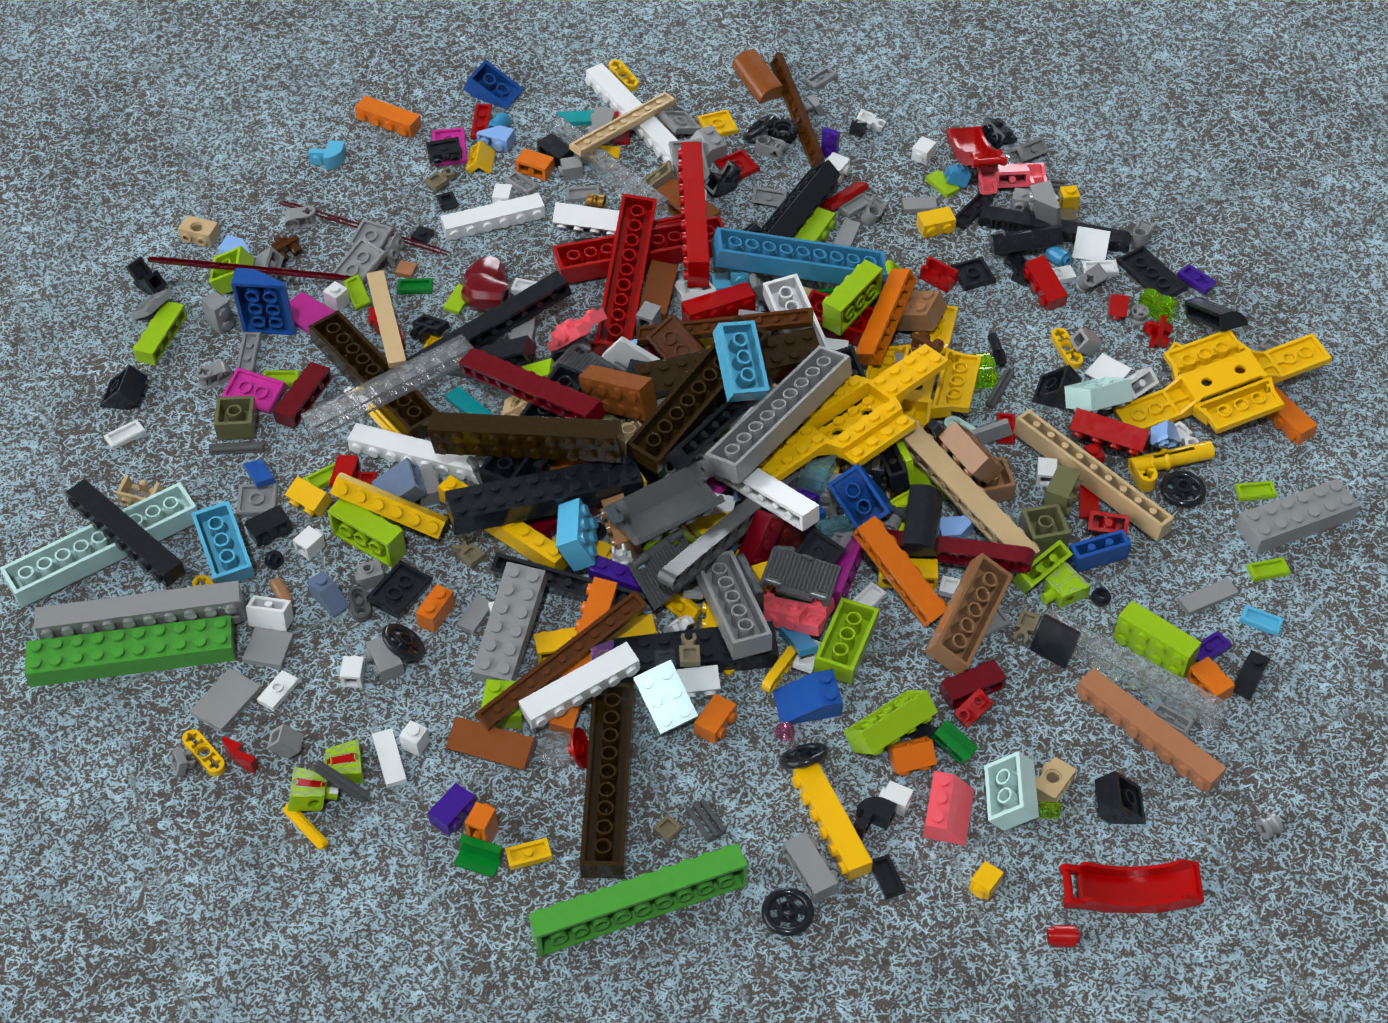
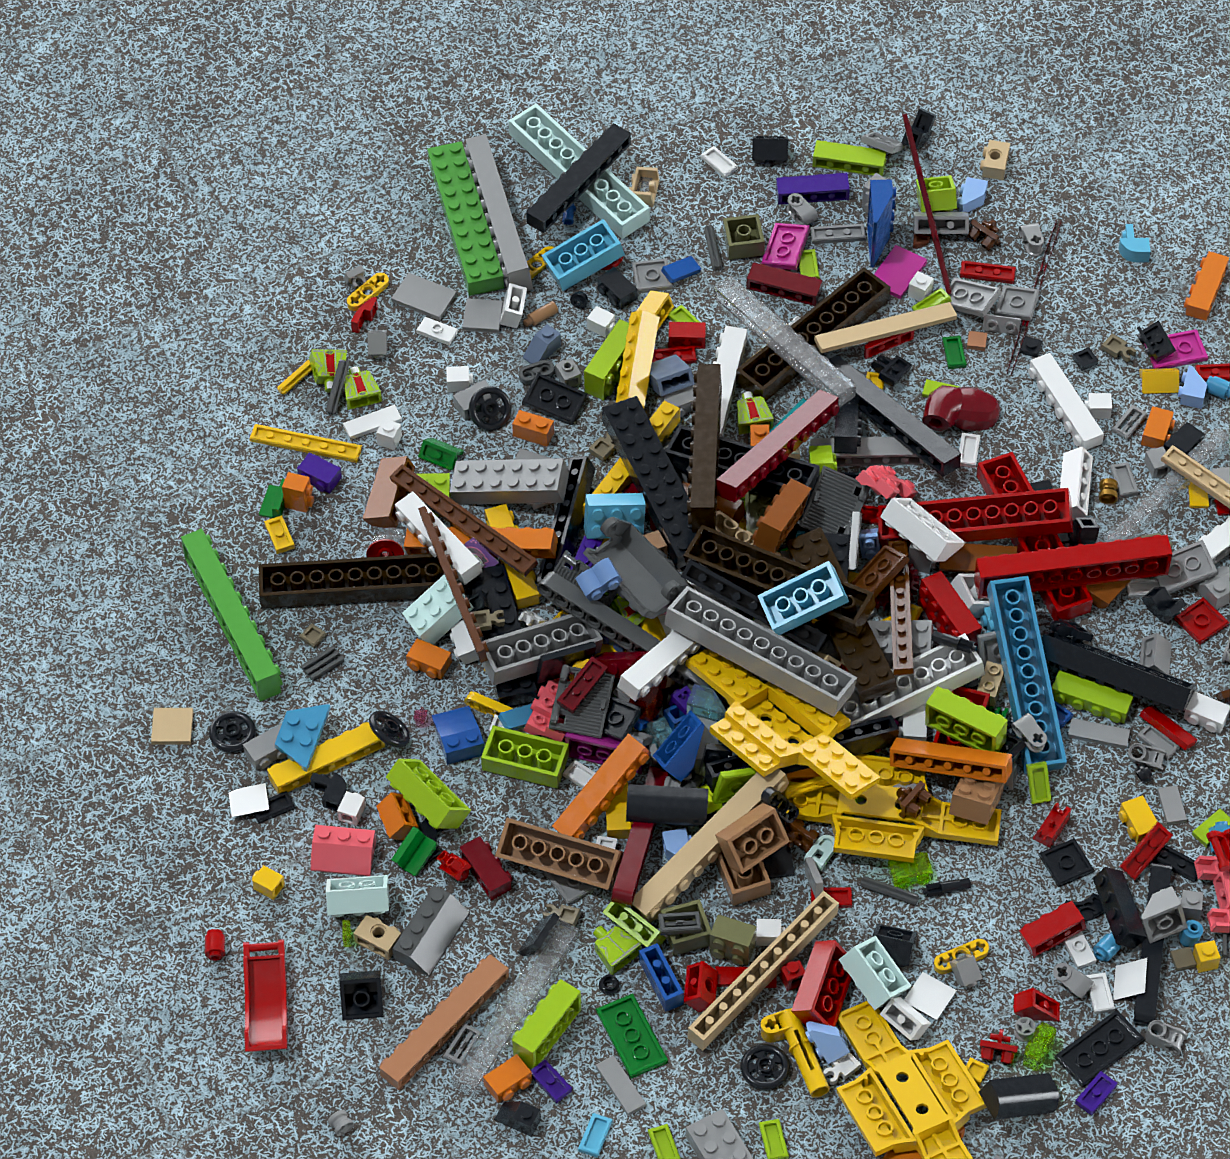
camera: 85 degrees right, 5 degrees up
(188, 359) = (814, 187): none -> dark purple brick
(328, 253) = (987, 272): none -> red tile
(403, 825) = (306, 443): none -> yellow tile
(447, 695) = (439, 453): none -> green panel
(641, 303) = (921, 529): none -> white slope
(653, 661) = (456, 588): none -> reddish brown plate
(681, 527) = (599, 579): none -> medium blue brick
(773, 974) = (172, 726): none -> tan tile
(774, 288) = (954, 642): none -> black piece
(788, 567) = (582, 685): none -> dark red plate
(809, 833) = (301, 733): none -> dark azure wing
(857, 257) = (1029, 730): none -> light grey piece
(878, 898) = (248, 800): none -> white sticker
(890, 215) = (1143, 774): none -> black plate
(969, 219) = (1145, 851): none -> red tile
(1043, 737) = (430, 931): none -> dark grey slope
(1053, 533) = (680, 925): none -> dark grey tile
(1155, 584) = (631, 1036): none -> green tile

